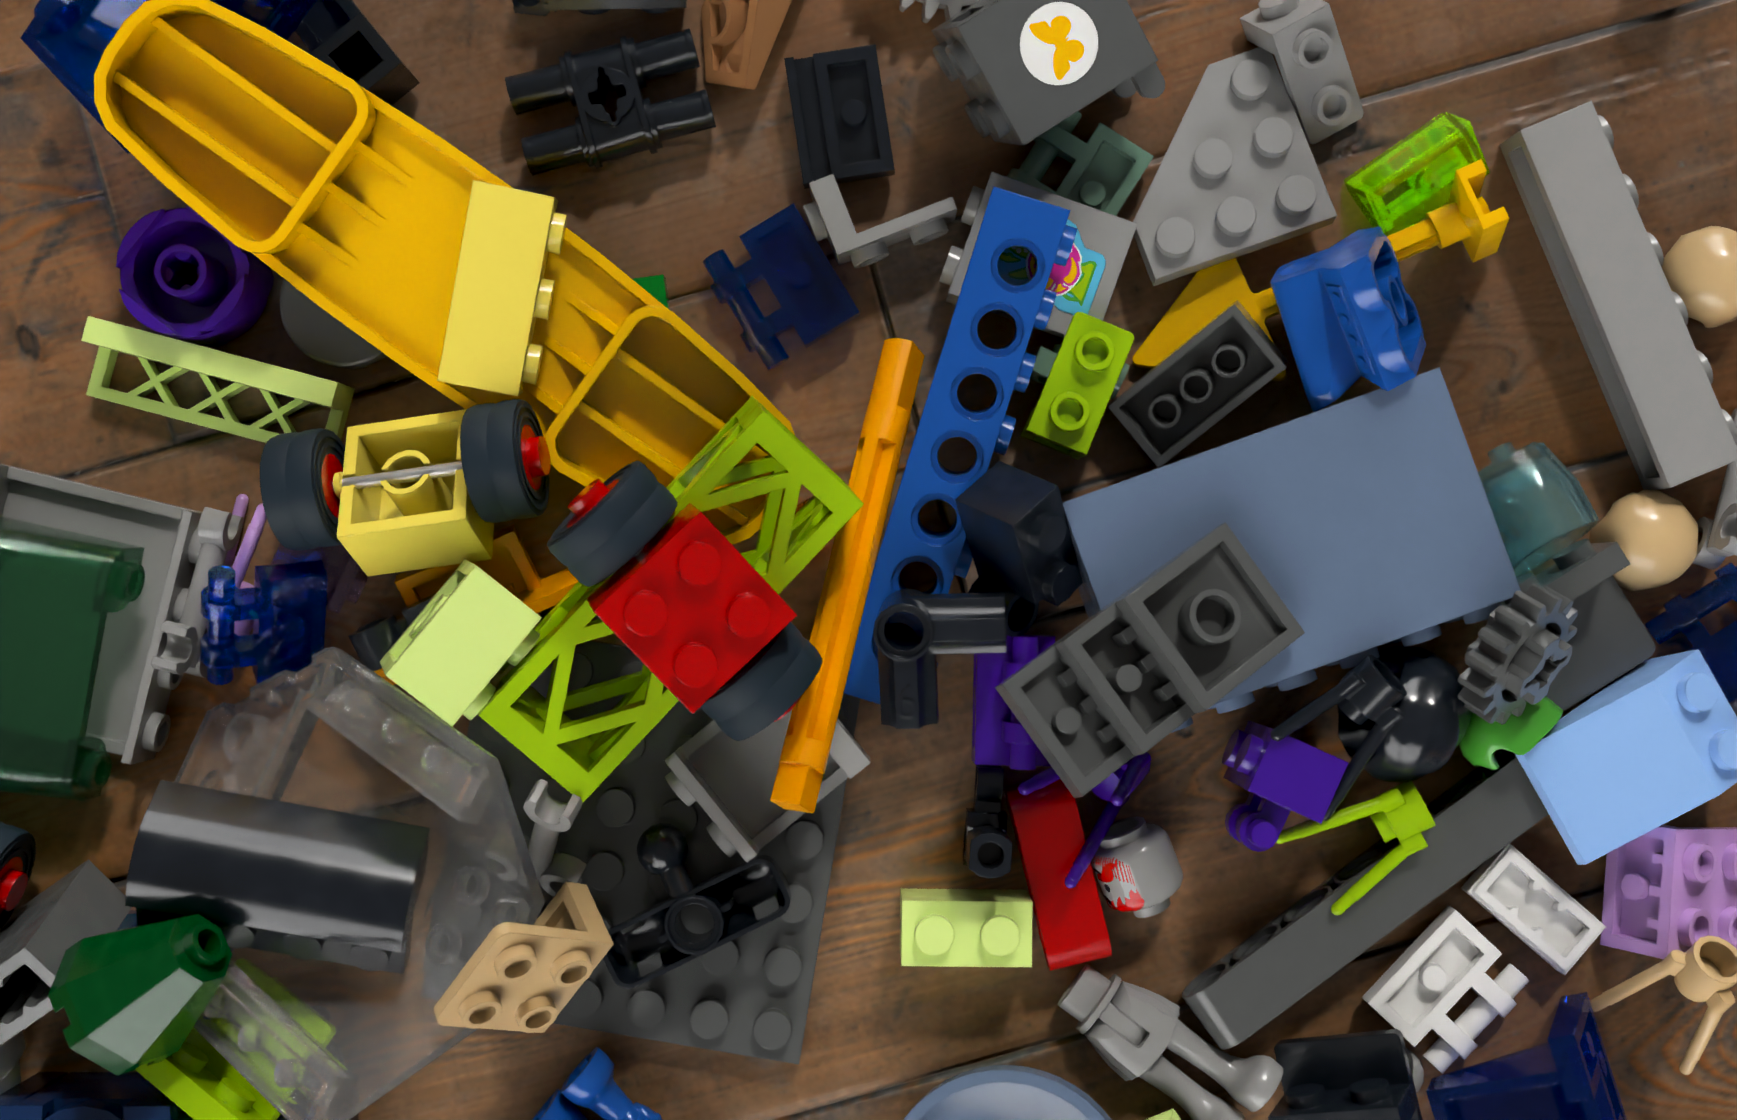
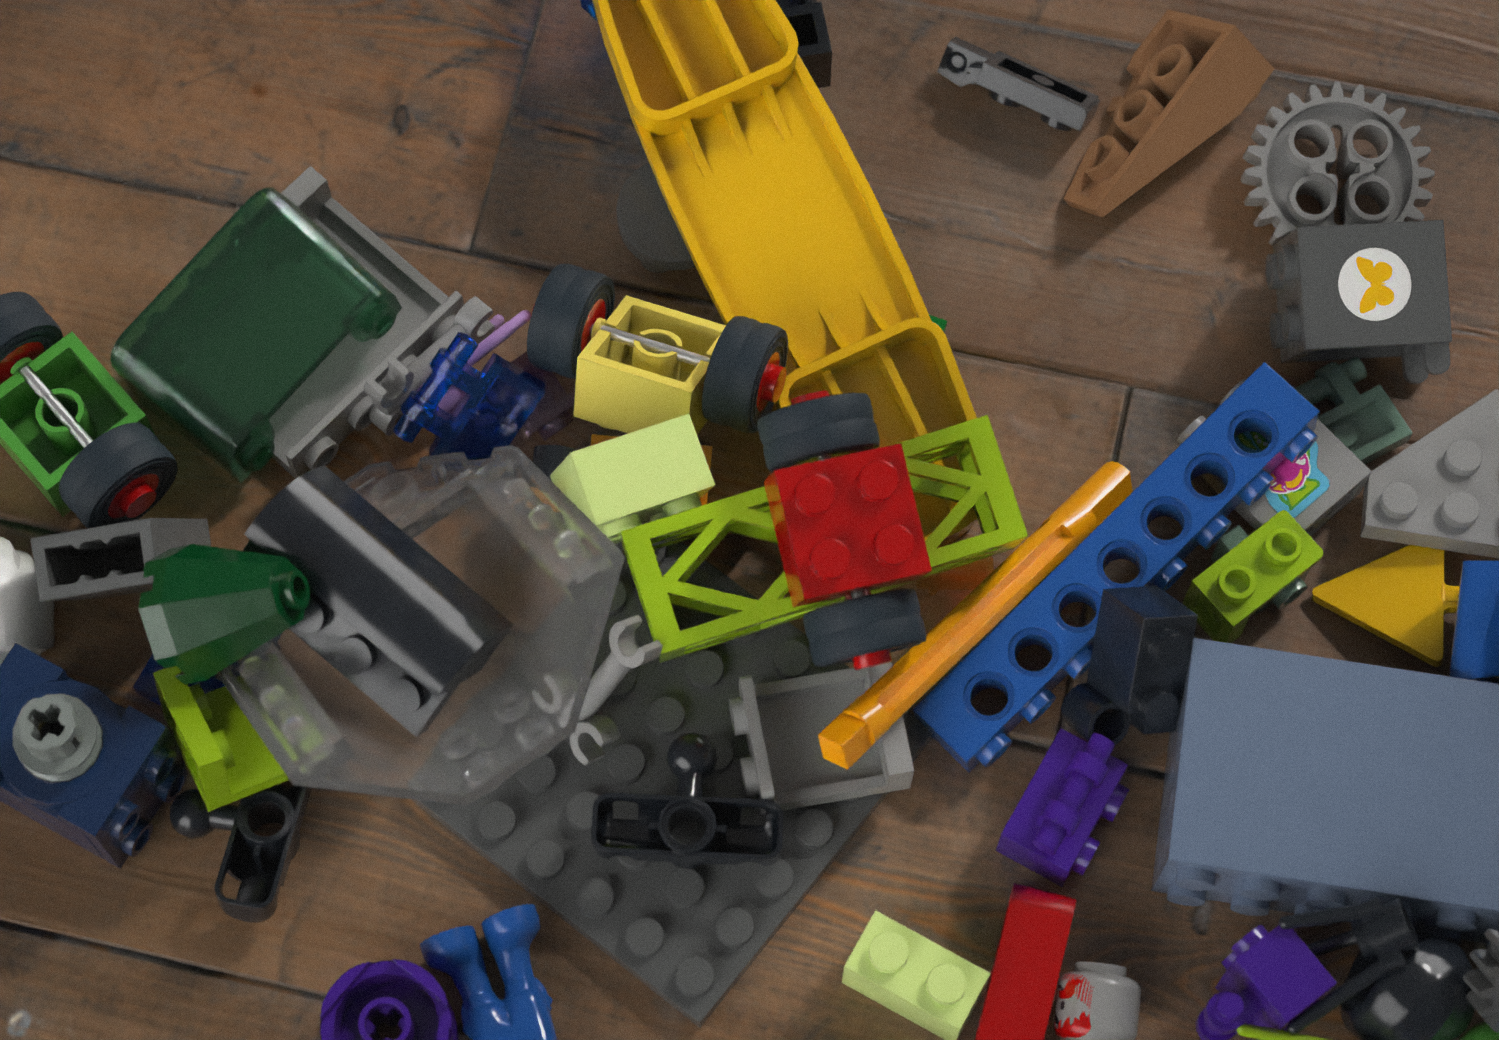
camera: 30 degrees right, 20 degrees down
(157, 283) = (570, 129): dark purple brick -> none
(209, 364) = (539, 199): yellowish green fence -> none
(501, 289) = (817, 245): light yellow brick -> none
(529, 971) = (528, 771): tan bracket -> none
(583, 82) = (991, 197): black pin -> none
(797, 275) = (1059, 380): clear blue plate -> none
(831, 220) = (1140, 381): light grey bracket -> none
(840, 115) = (1161, 276): black plate -> none
(909, 665) = (991, 710): black piece -> none
(986, 842) = (980, 899): black bar -> none
(1114, 789) = (1116, 915): dark purple plant -> none
(1150, 660) = (1204, 795): dark grey slope -> none
(1198, 384) = (1366, 621): dark grey piece -> none

